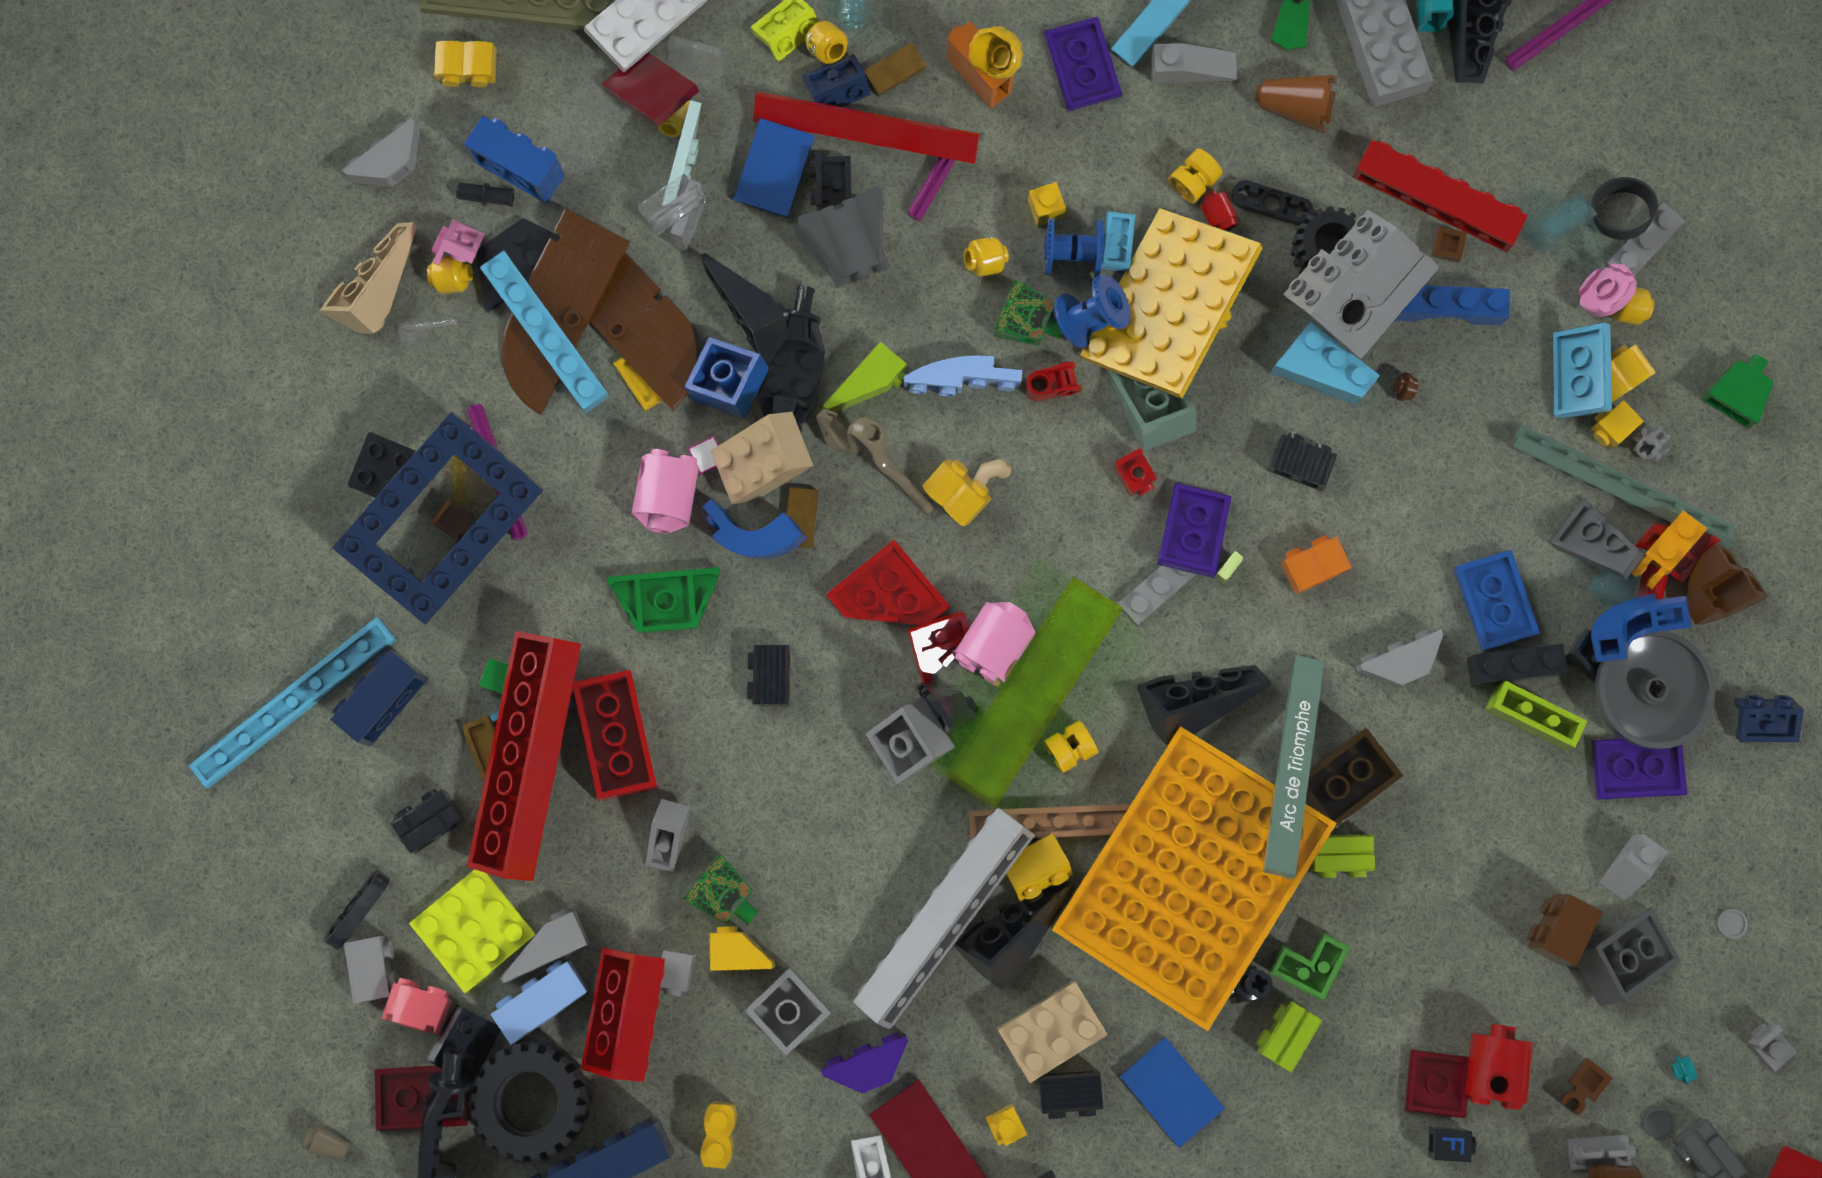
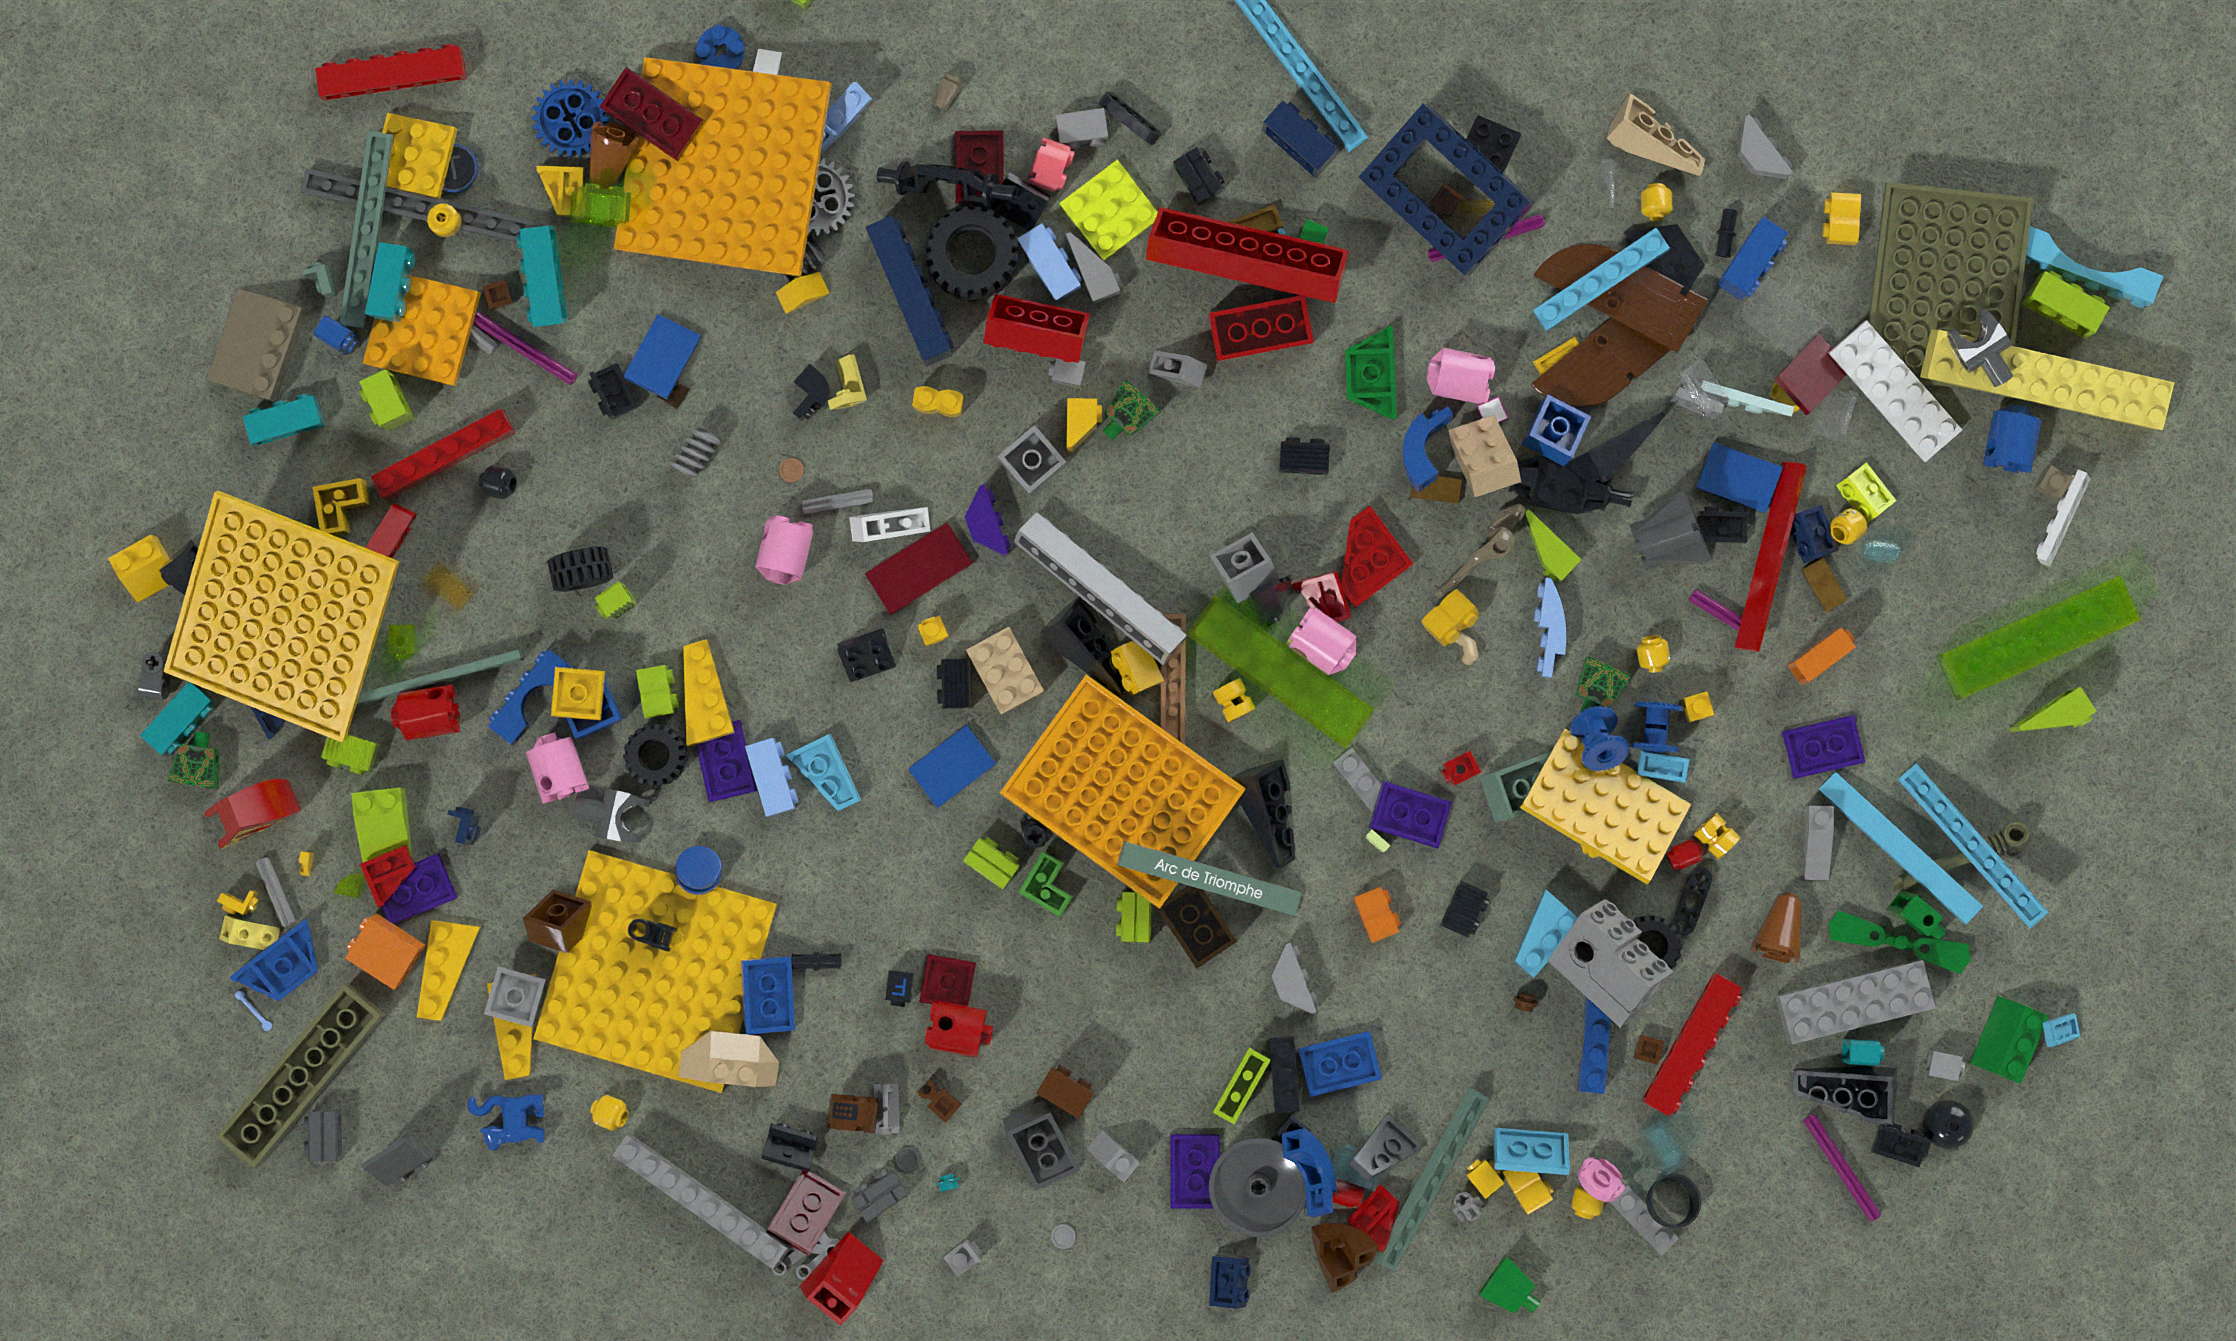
camera: 100 degrees right, 5 degrees up
(458, 241) = (1682, 209): bright pink bracket -> none
(996, 52) = (1822, 665): yellow hair -> none
(1058, 380) = (1542, 706): red piece -> none
(1671, 547) = (1375, 1208): light orange hinge -> none

